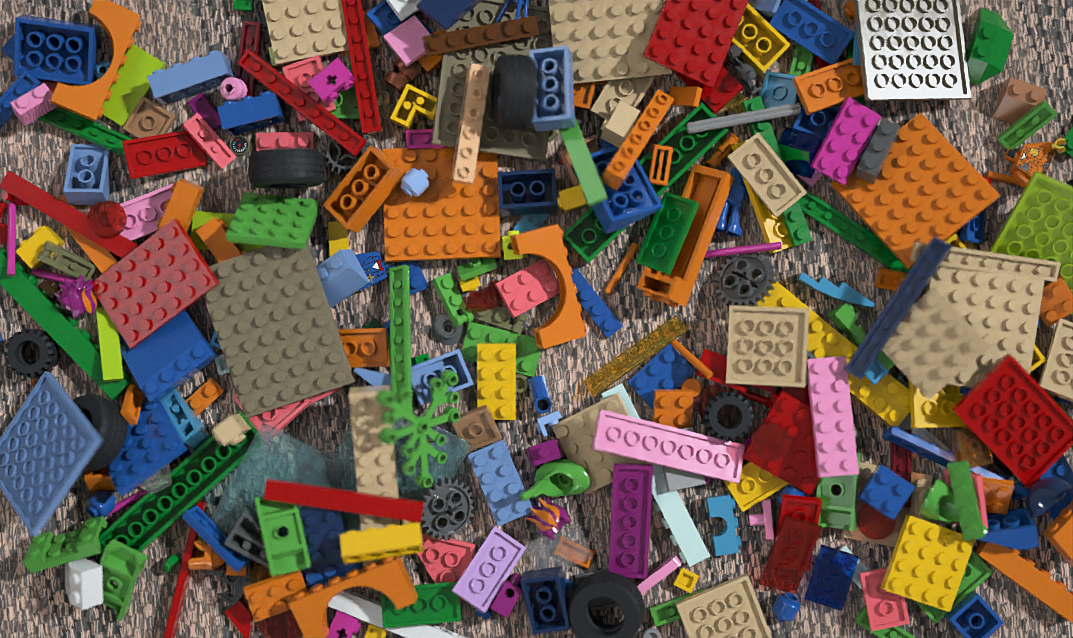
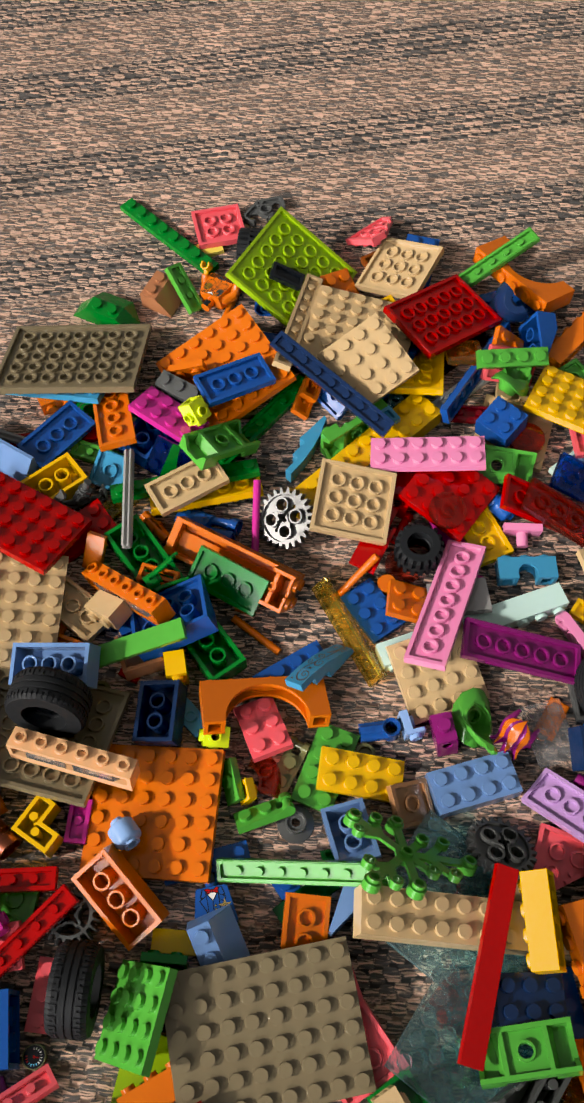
camera: 85 degrees left, 25 degrees down
(321, 228) = (175, 960): none -> green plate
(591, 332) = (319, 665): none -> dark azure slope
(654, 161) = (153, 579): none -> green plant
(805, 187) = (217, 443): none -> bright green piece
(846, 168) = (195, 411): none -> neon yellow brick
(891, 204) = (234, 379): none -> blue plate
(907, 159) = (188, 369): none -> orange plate
(1050, 239) = (286, 276): none -> black tile

